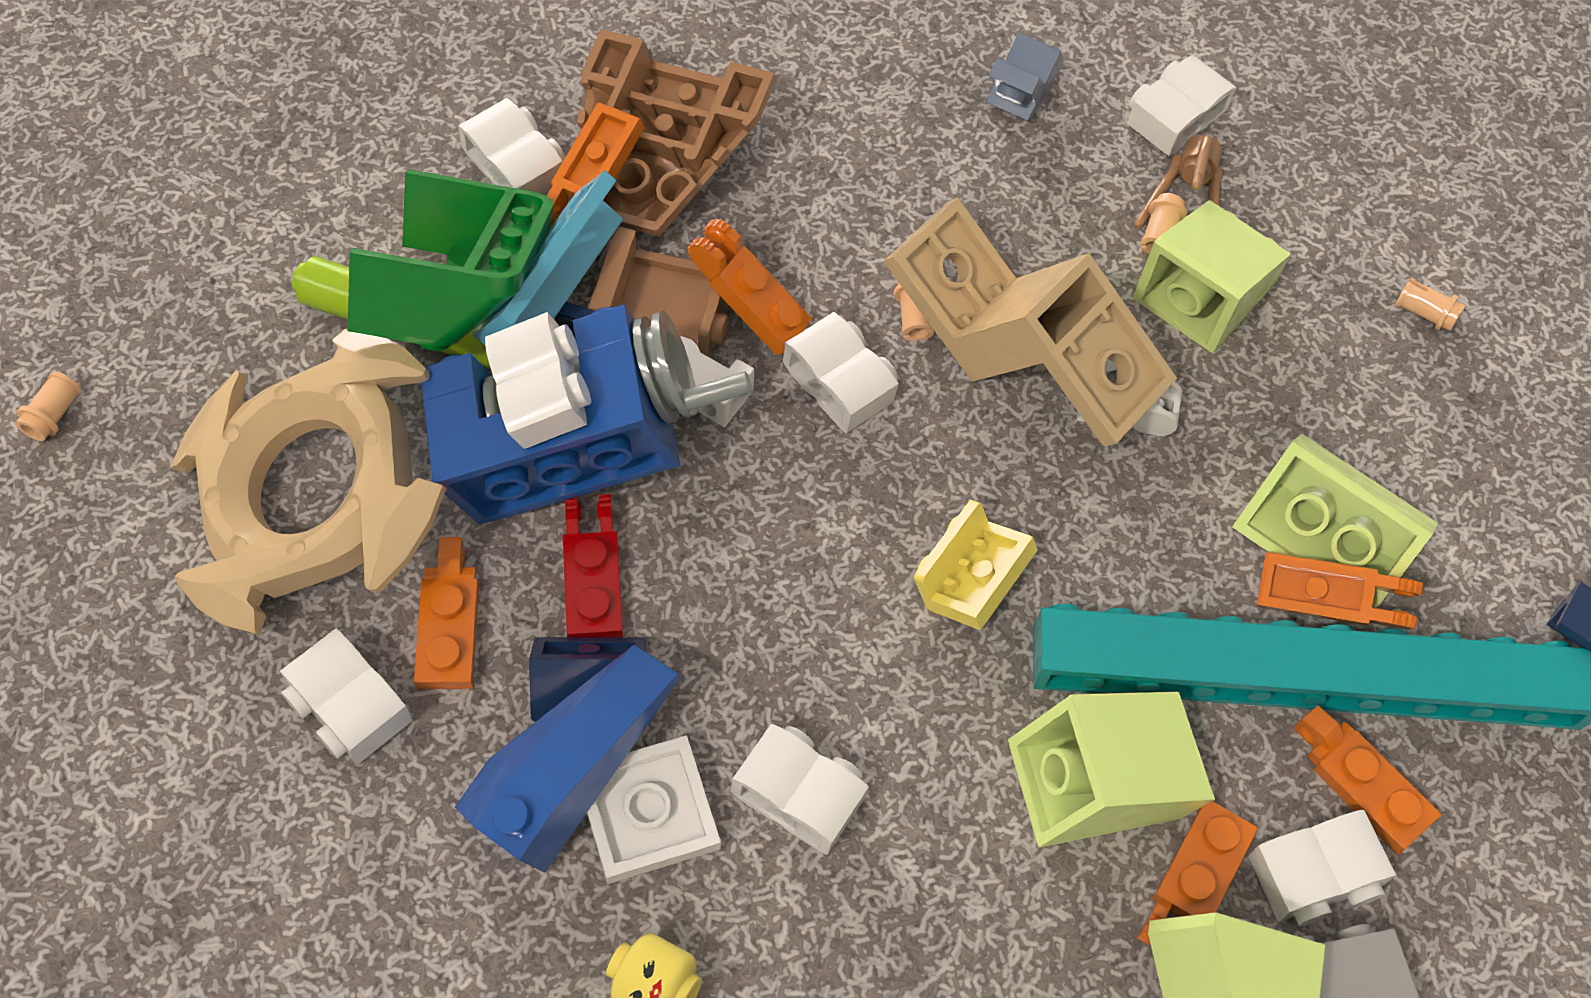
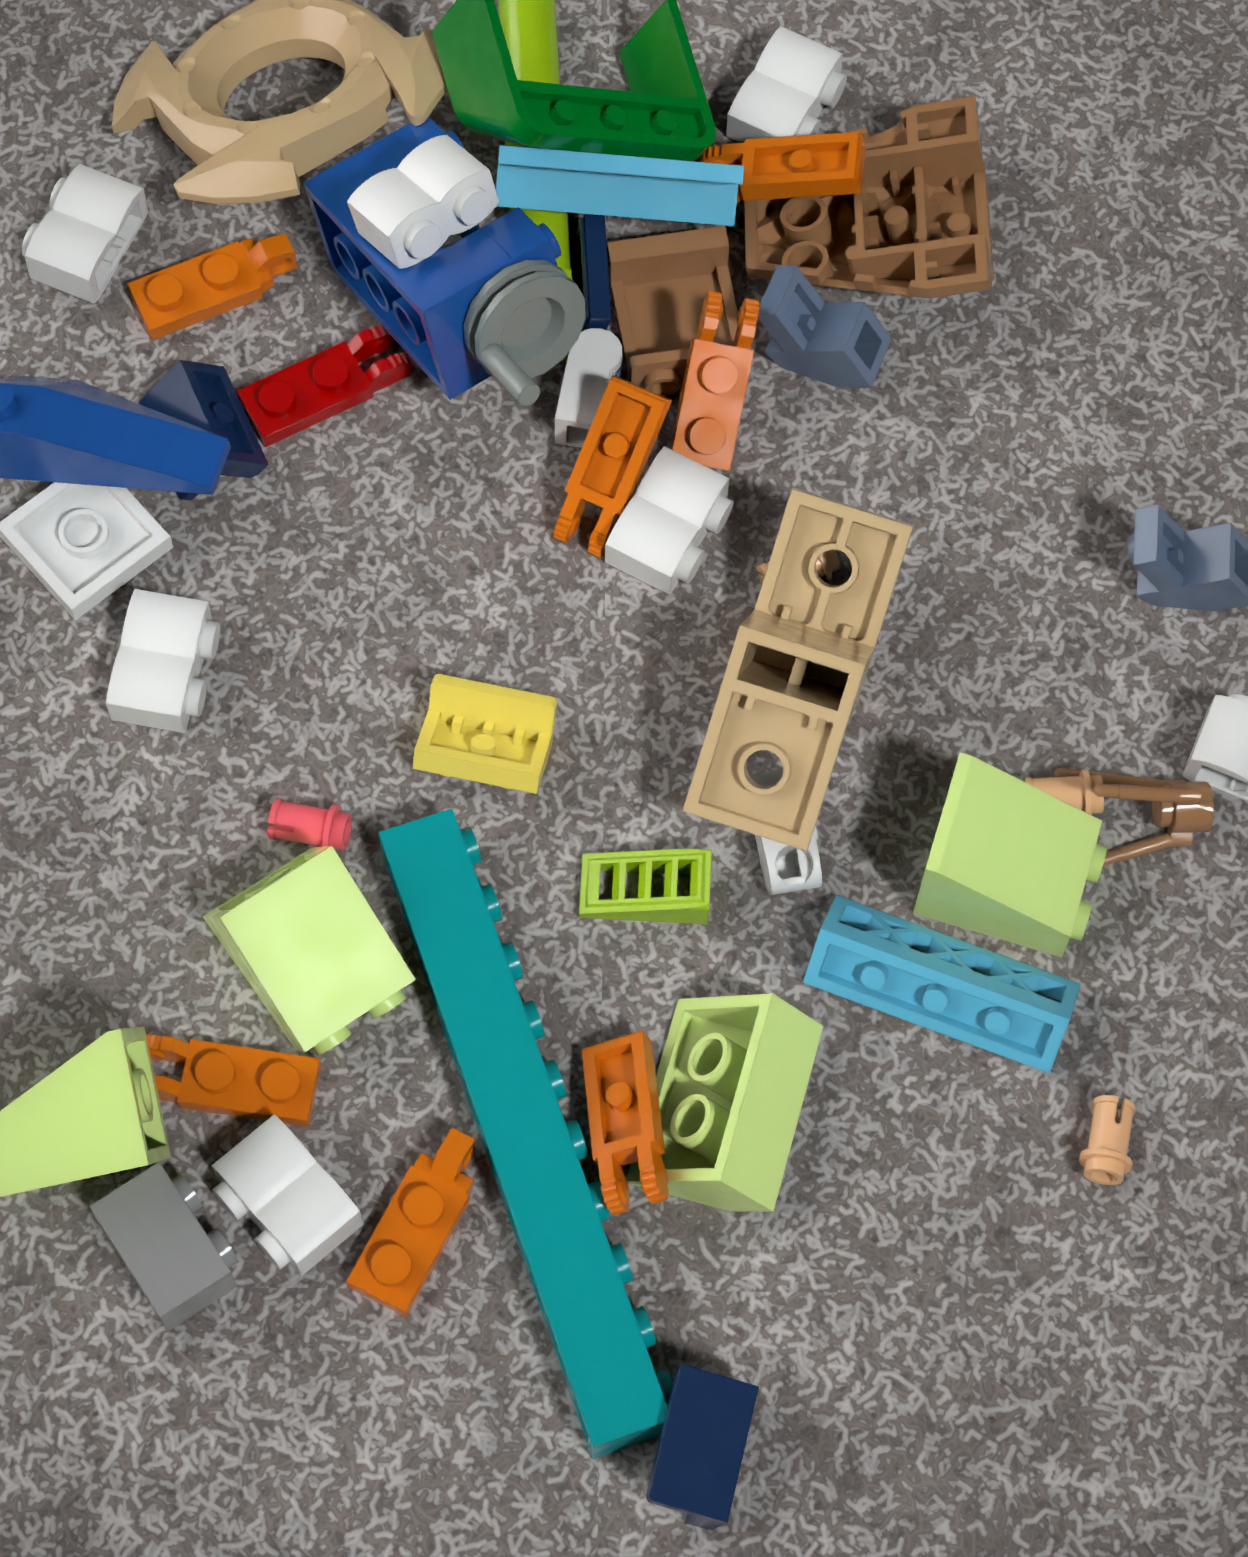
camera: 70 degrees right, 5 degrees up
(741, 201) = (819, 339): none -> sand blue brick
(785, 380) = (612, 459): none -> orange hinge
(995, 728) = (310, 824): none -> coral pin
(1152, 478) = (670, 908): none -> lime slope
(1288, 354) = (940, 987): none -> medium azure fence

